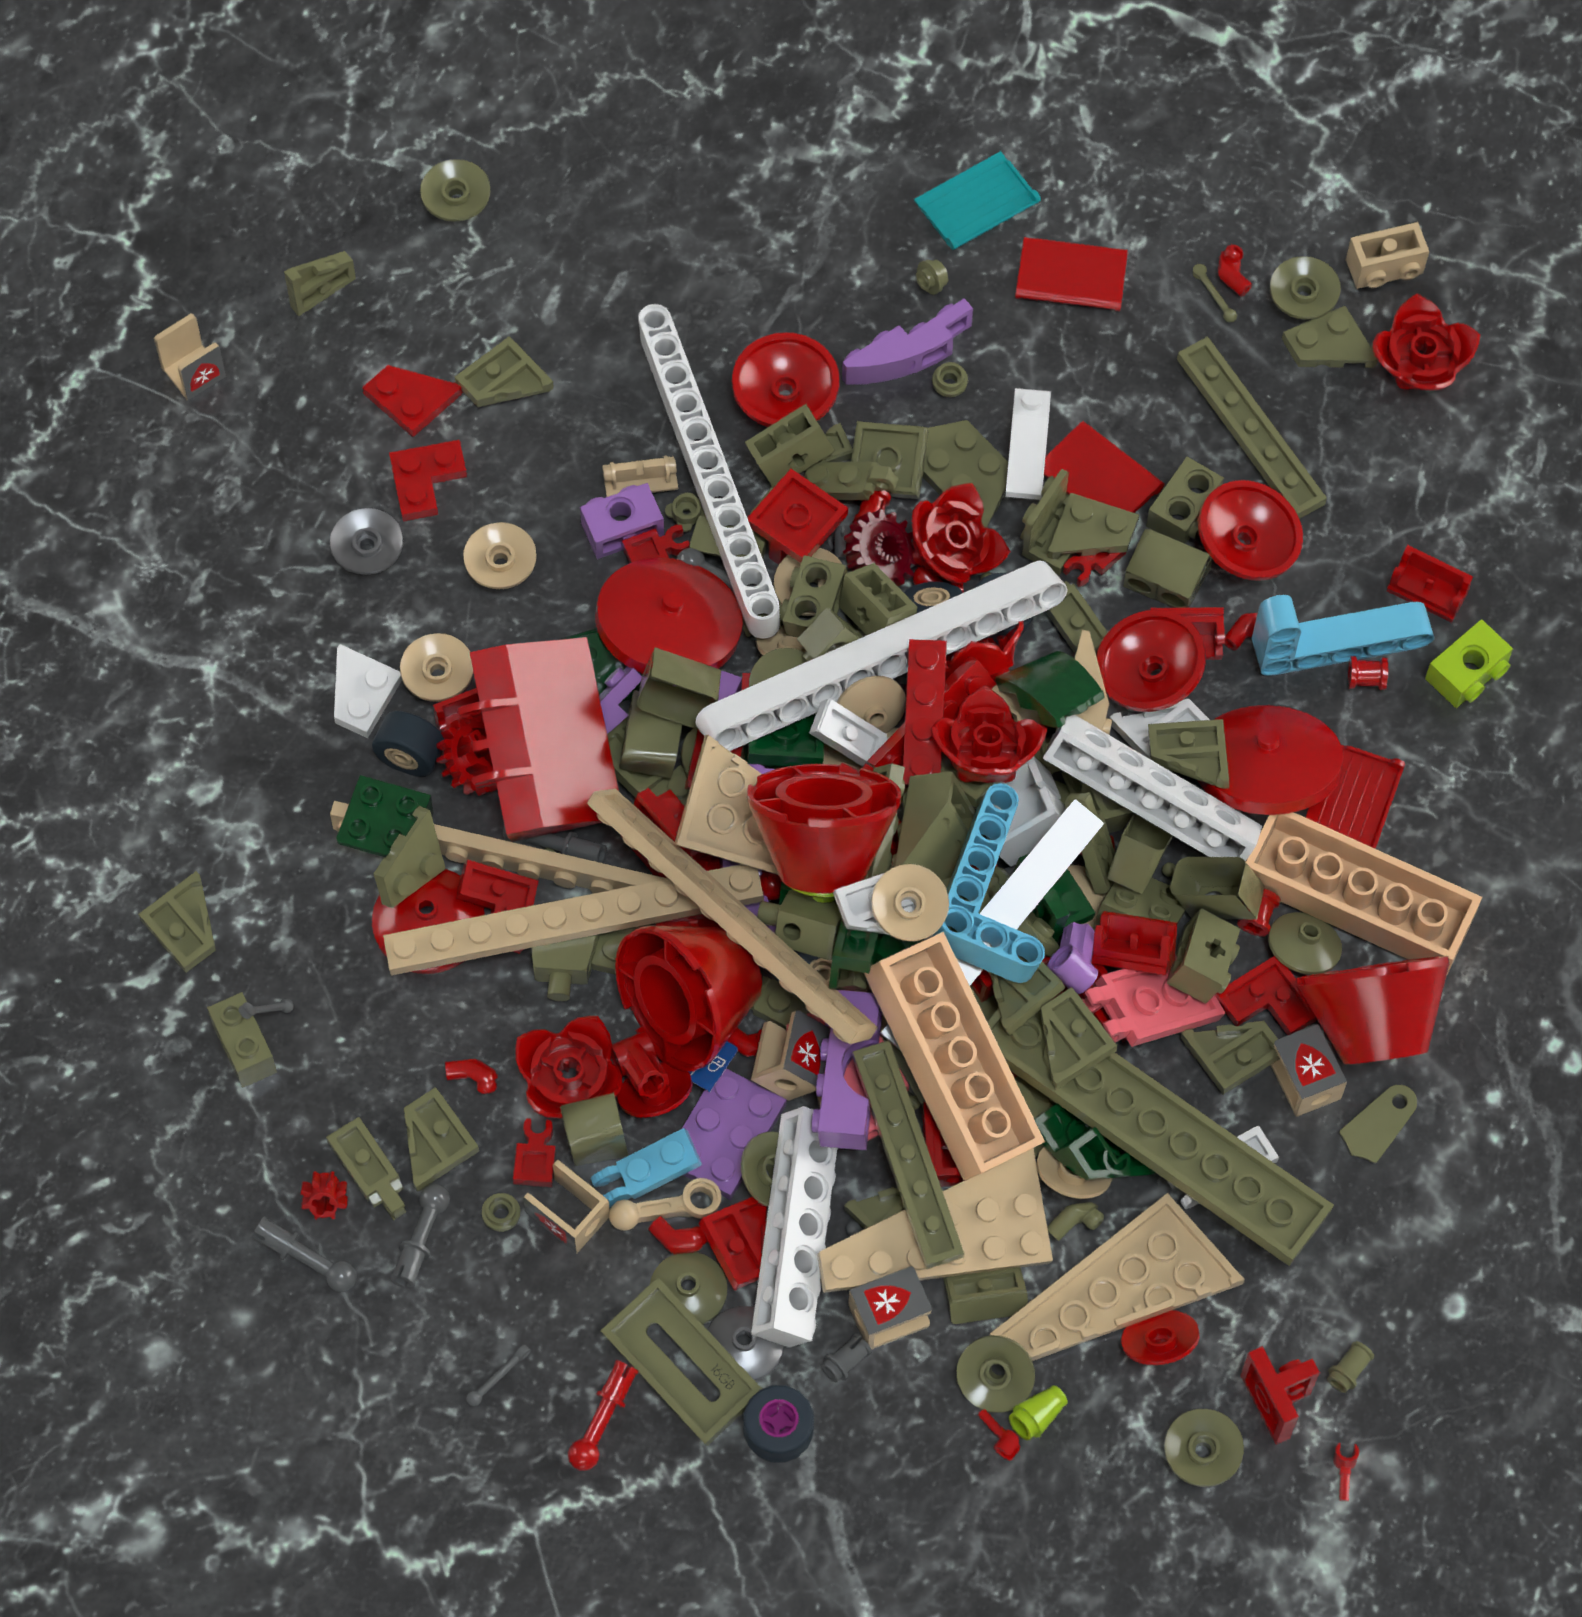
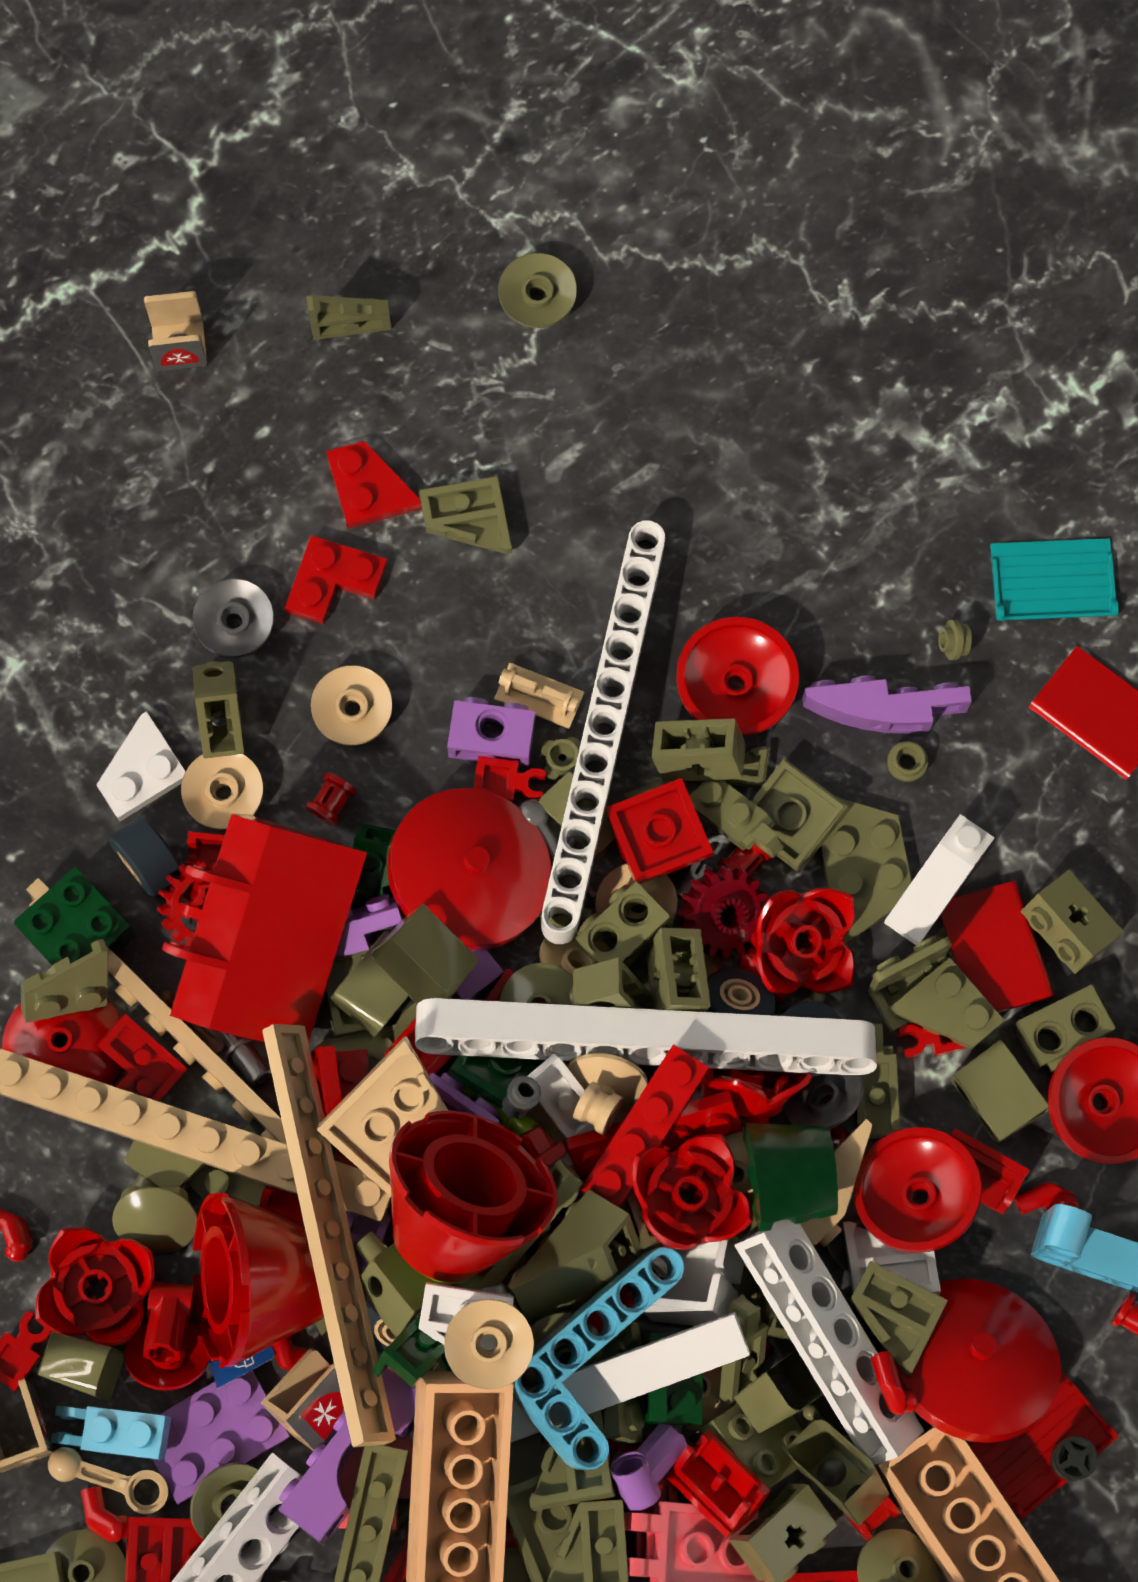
camera: 30 degrees right, 10 degrees up
(397, 595) = (215, 694): none -> olive torso
(526, 625) = (331, 799): none -> red bush
(583, 992) = (155, 1218): none -> olive dish
(818, 735) = (521, 1096): none -> dark grey pin
(879, 720) = (598, 1108): none -> tan wheel
(1044, 635) = (825, 1101): none -> flat silver dish
(1144, 423) = (1071, 921): none -> olive brick
(1227, 802) = (888, 1379): none -> red arm
(1385, 783) = (1080, 1455): none -> pearl dark grey wheel

